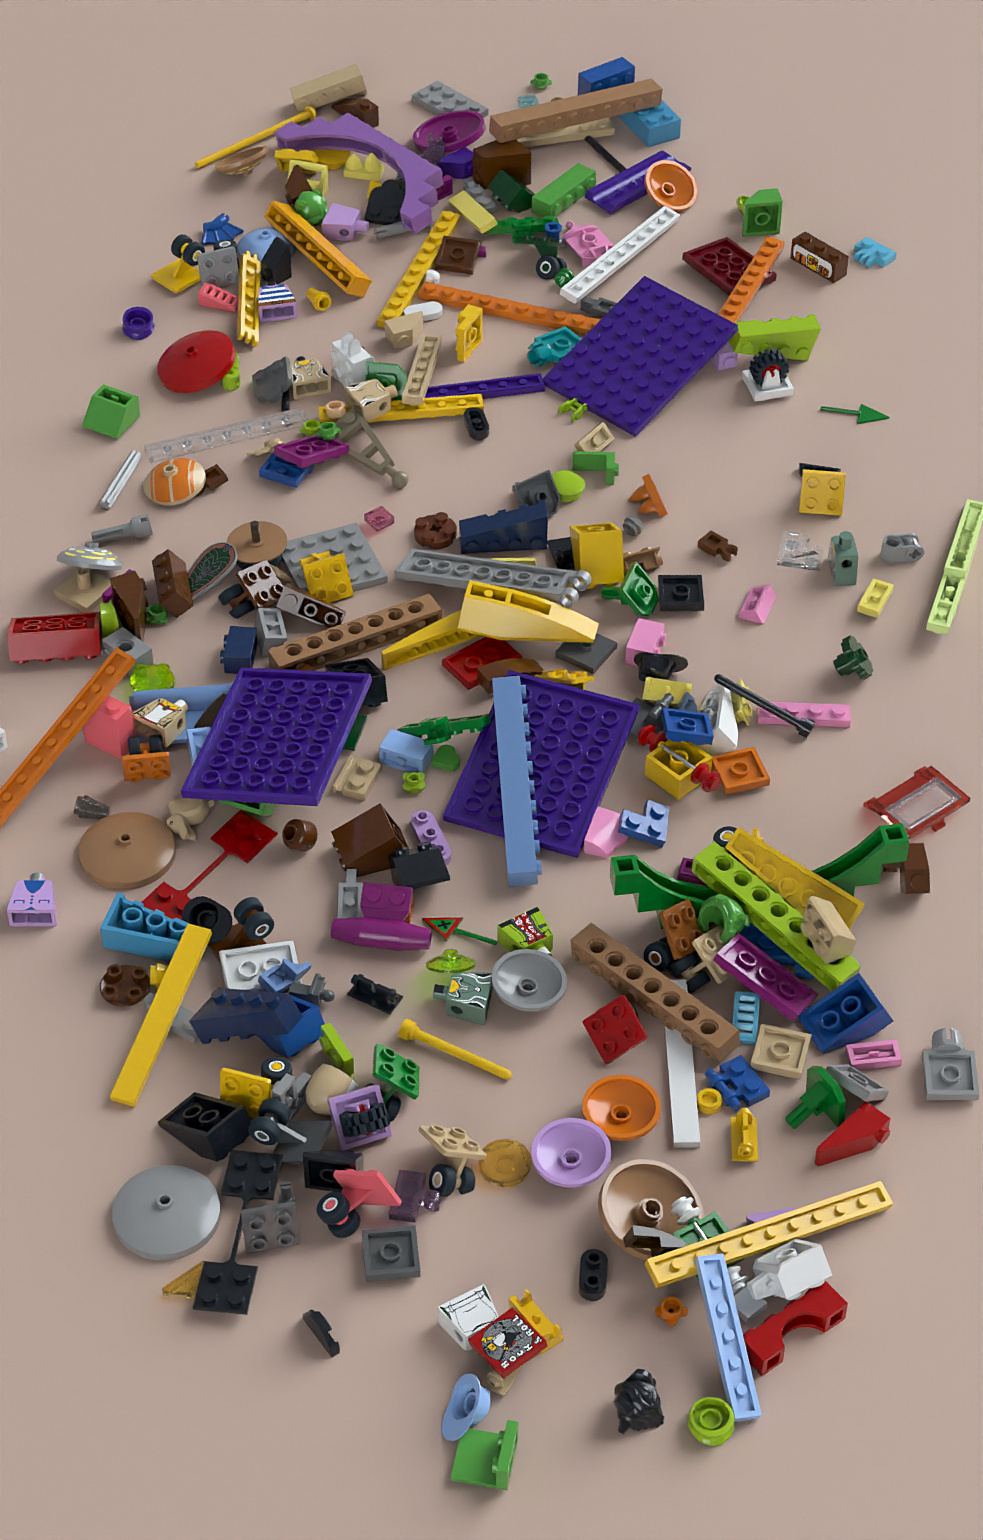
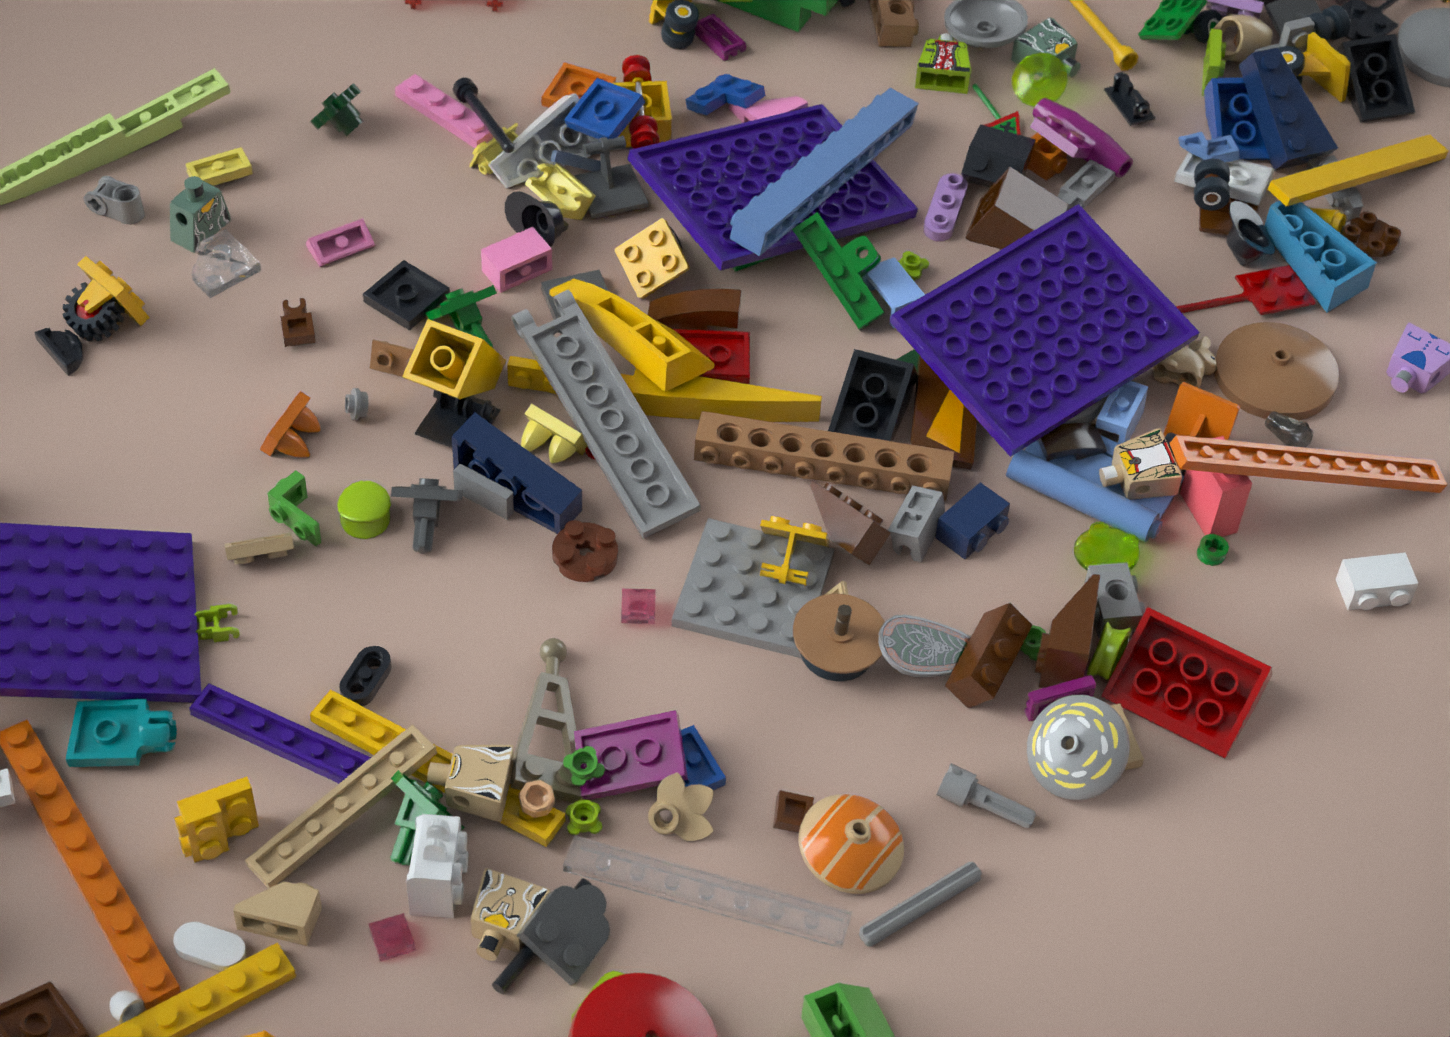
camera: 145 degrees left, 5 degrees up
(259, 585) = (897, 578): reddish brown plate -> none
(313, 993) = (1189, 125): dark grey piece -> none

